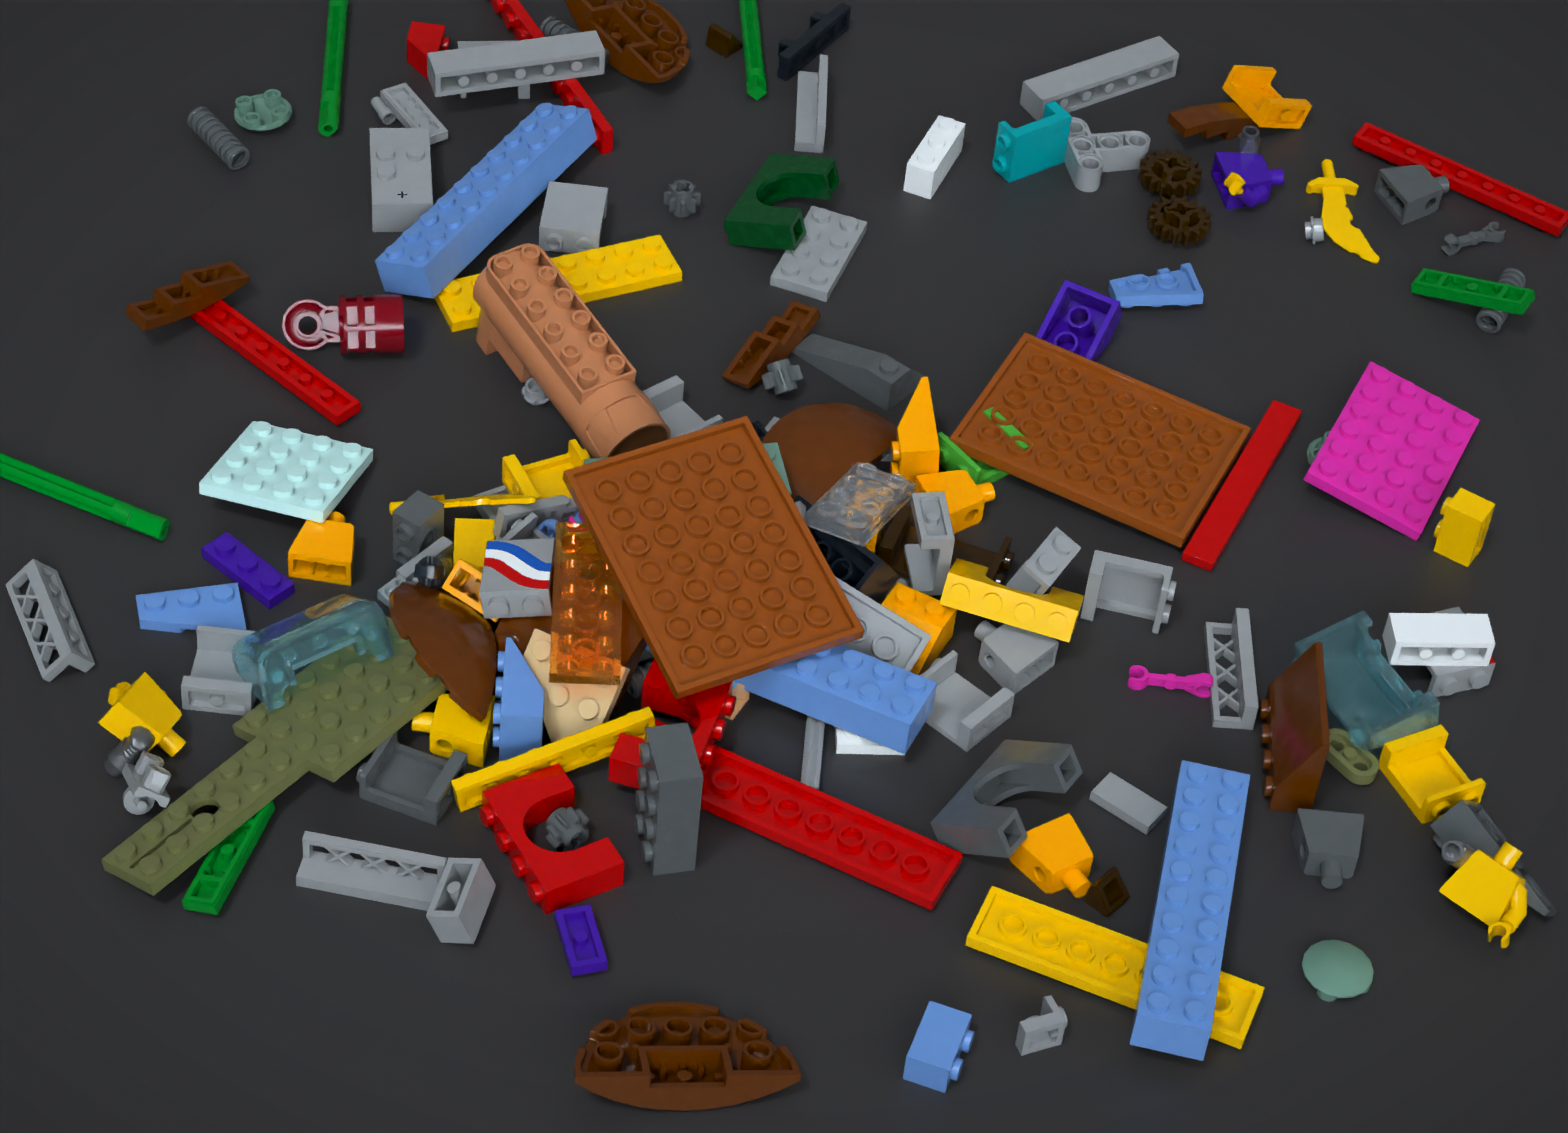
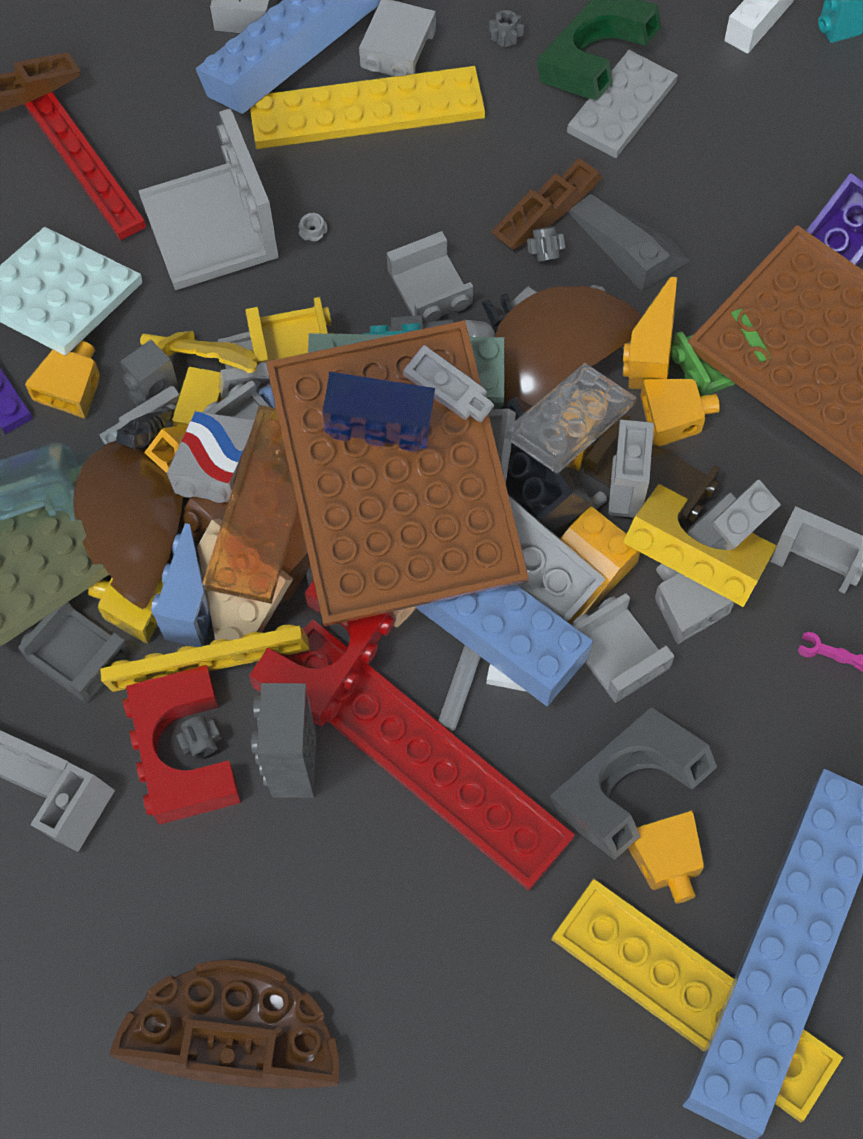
camera: 20 degrees right, 20 degrees up
(357, 323) = (162, 133): dark red cylinder -> none
(441, 389) = (213, 217): none -> light grey bracket
(553, 336) = (336, 209): nougat piece -> none
(580, 940) = (177, 867): dark purple plate -> none
(691, 492) = (378, 411): none -> clear blue brick
(748, 469) = (450, 384): none -> light grey hinge
(938, 1046) = (489, 1064): medium blue brick -> none
(1042, 1031) = (595, 1066): light grey bracket -> none
(1107, 893) = (711, 904): dark brown slope -> none
(1128, 803) = (761, 796): light grey tile -> none

